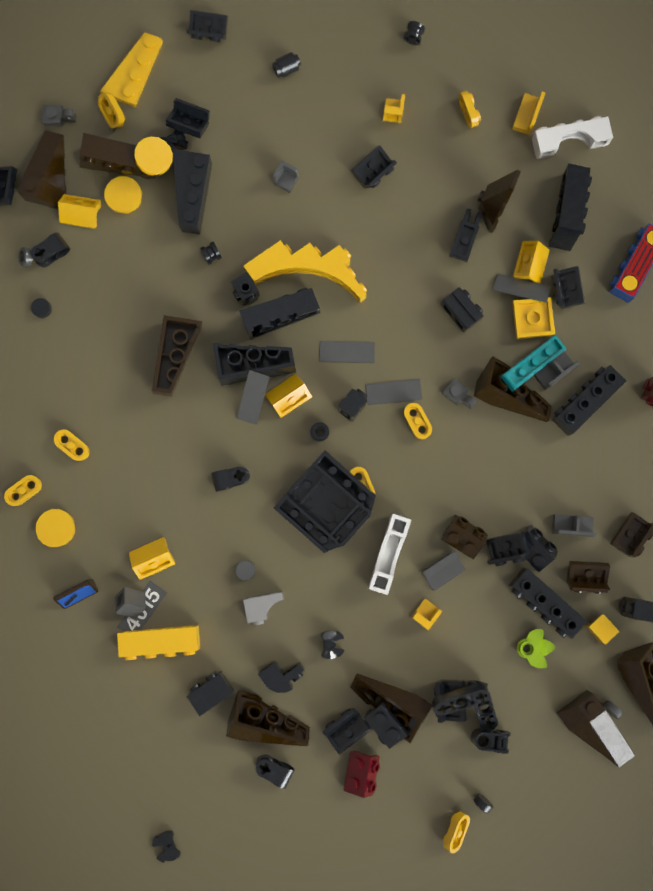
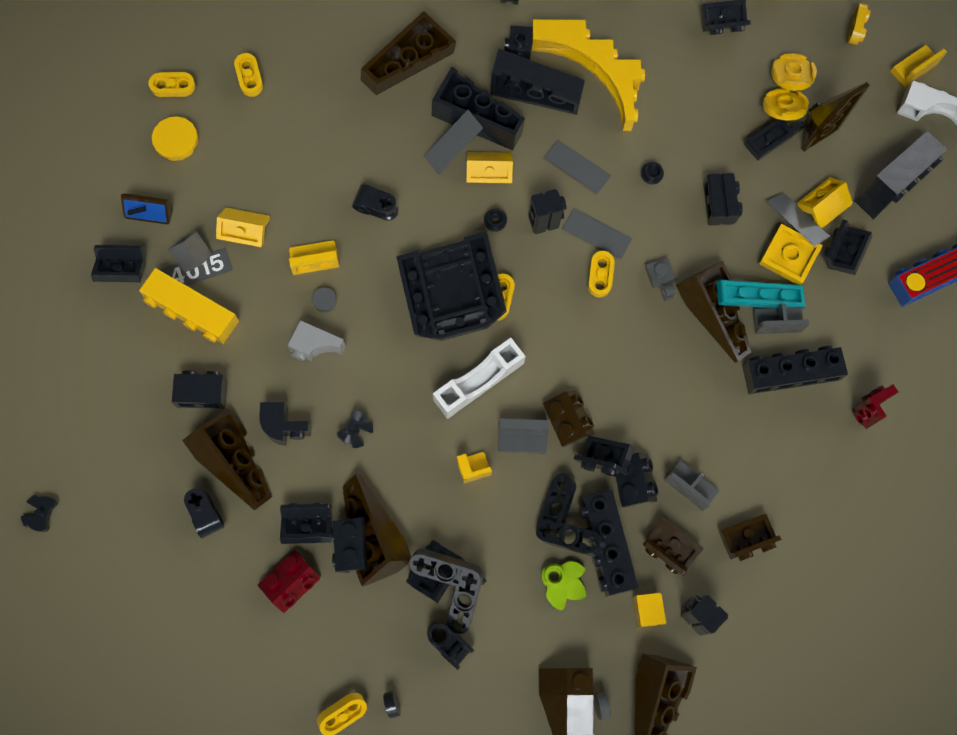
camera: 35 degrees right, 10 degrees down
(88, 646) = (118, 263): none -> black bracket
(215, 545) = (313, 257): none -> yellow panel
(402, 322) = (652, 173): none -> black plate
(448, 178) = (793, 72): none -> yellow tile
(459, 208) = (785, 105): none -> yellow tile
(505, 613) = (557, 521): none -> black beam

